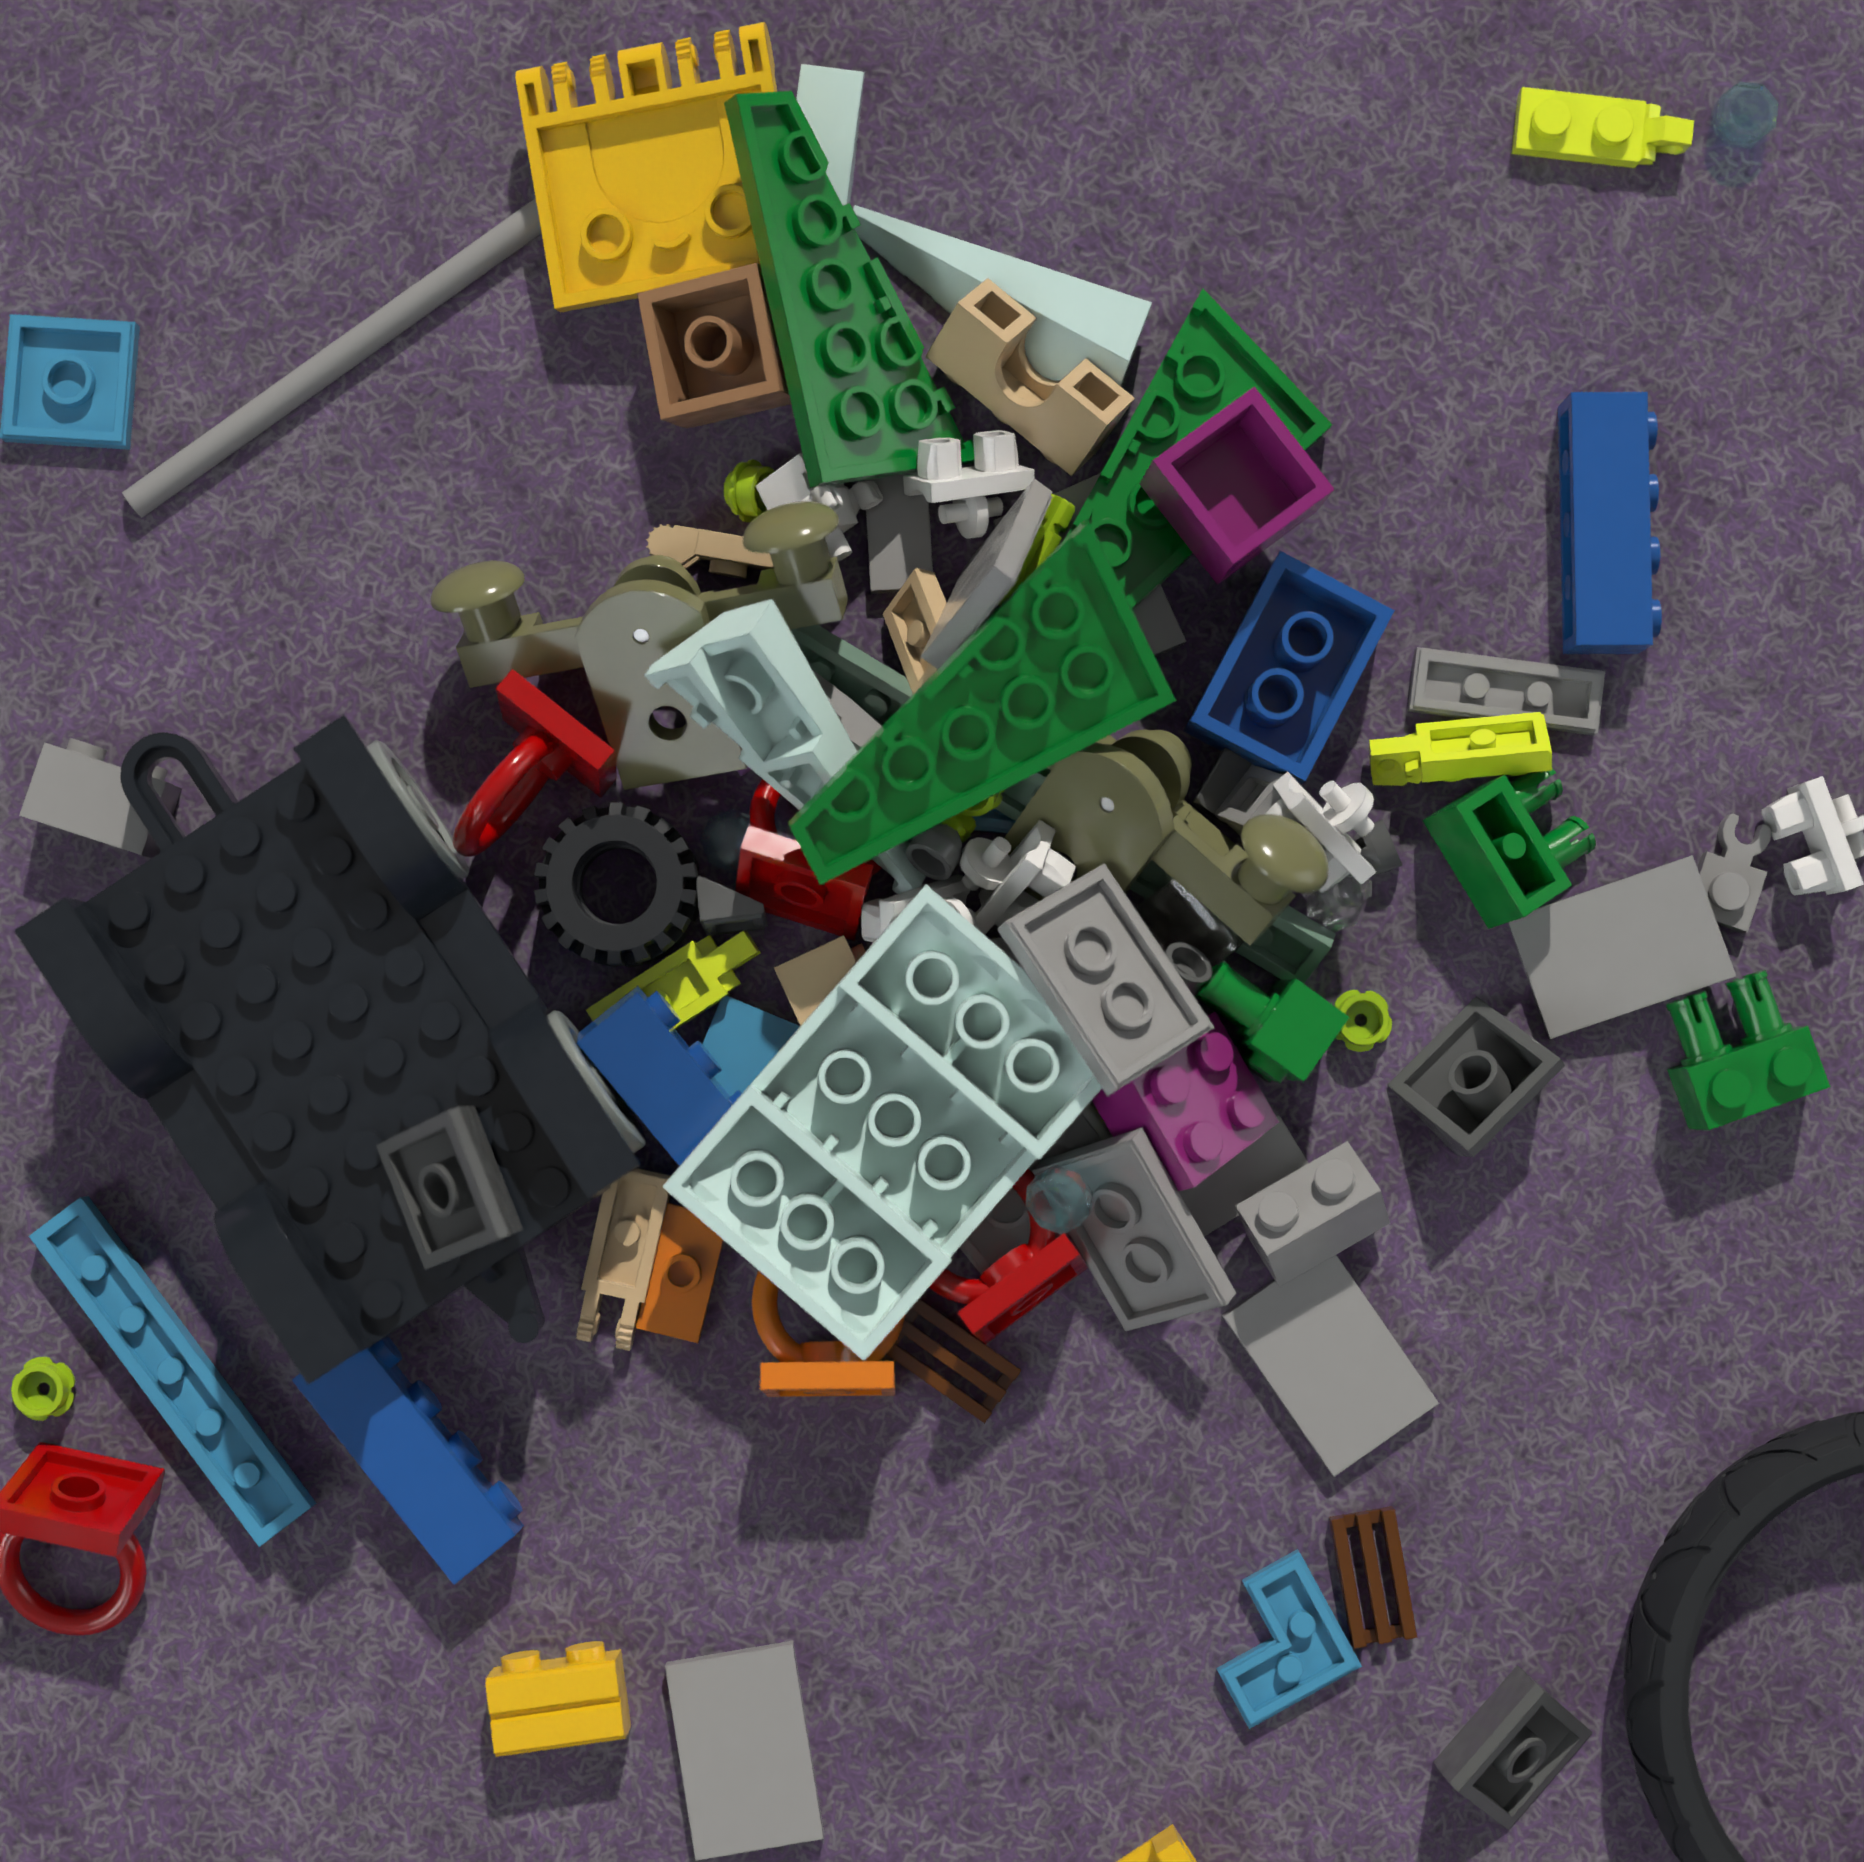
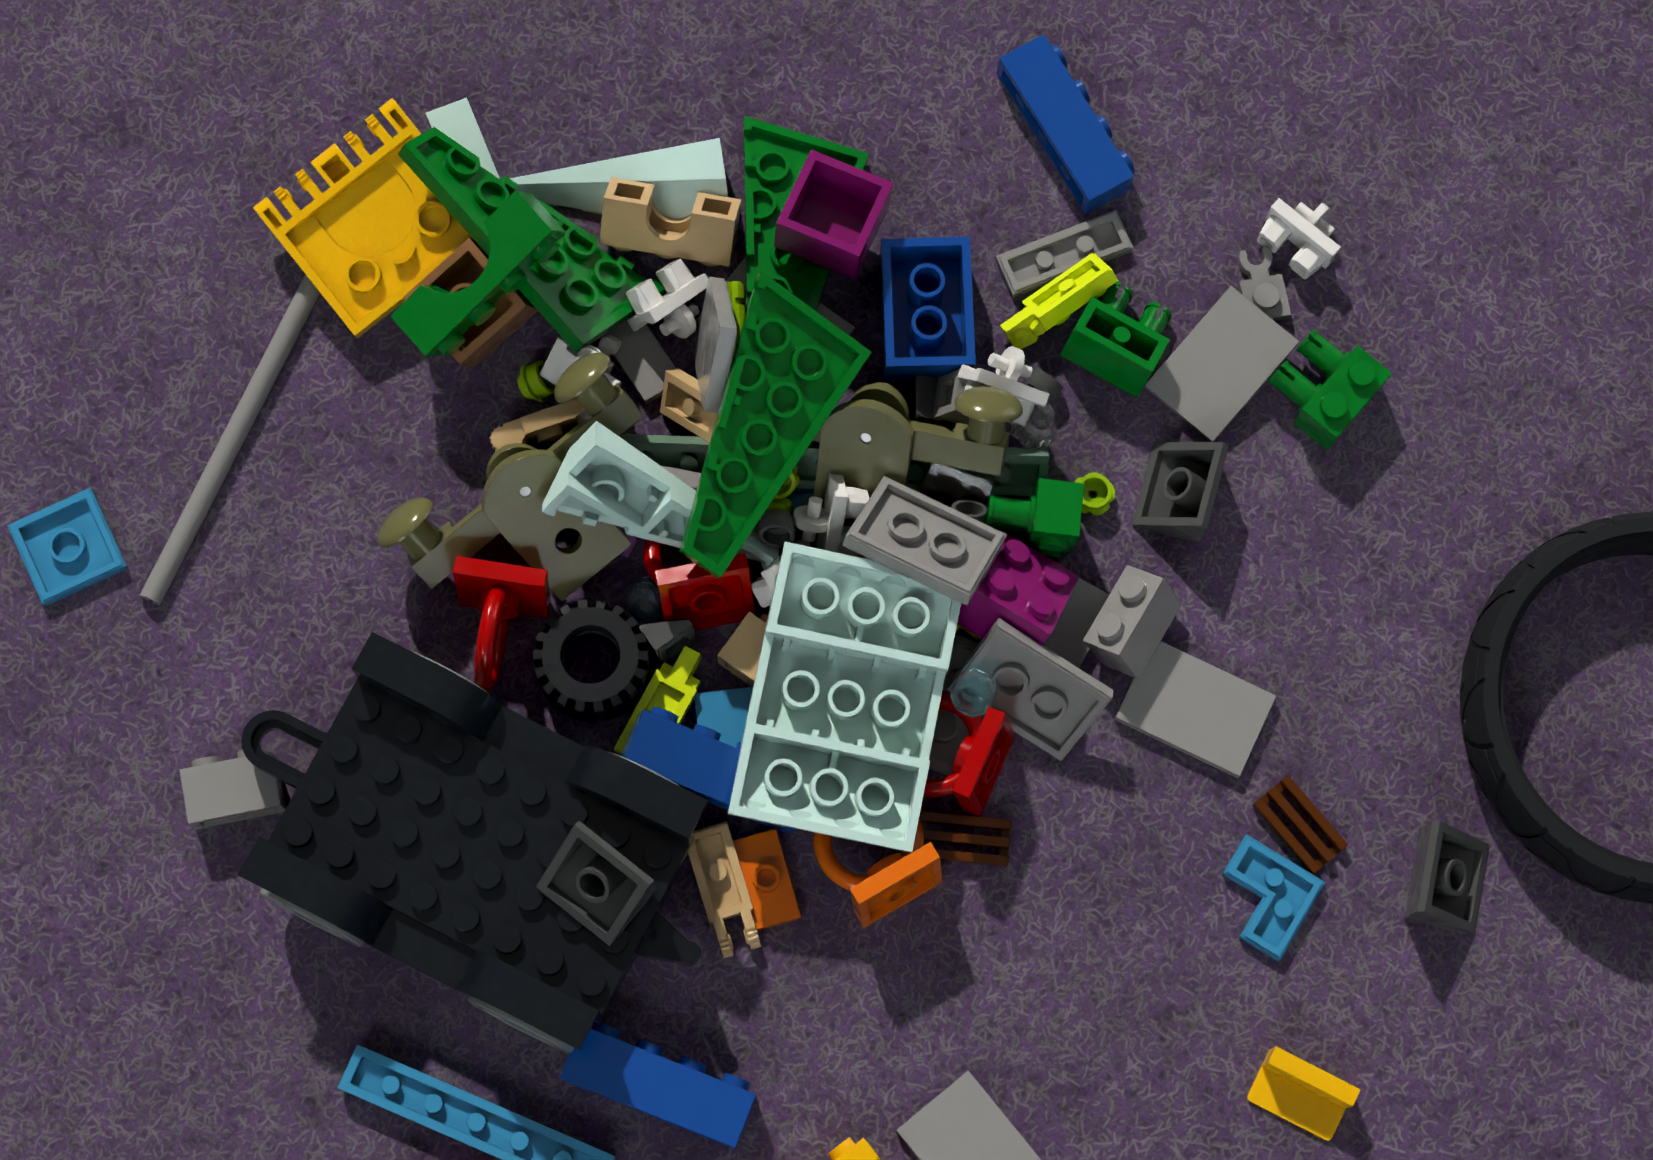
camera: 30 degrees left, 10 degrees down
(810, 300) = (518, 237): none -> green arch

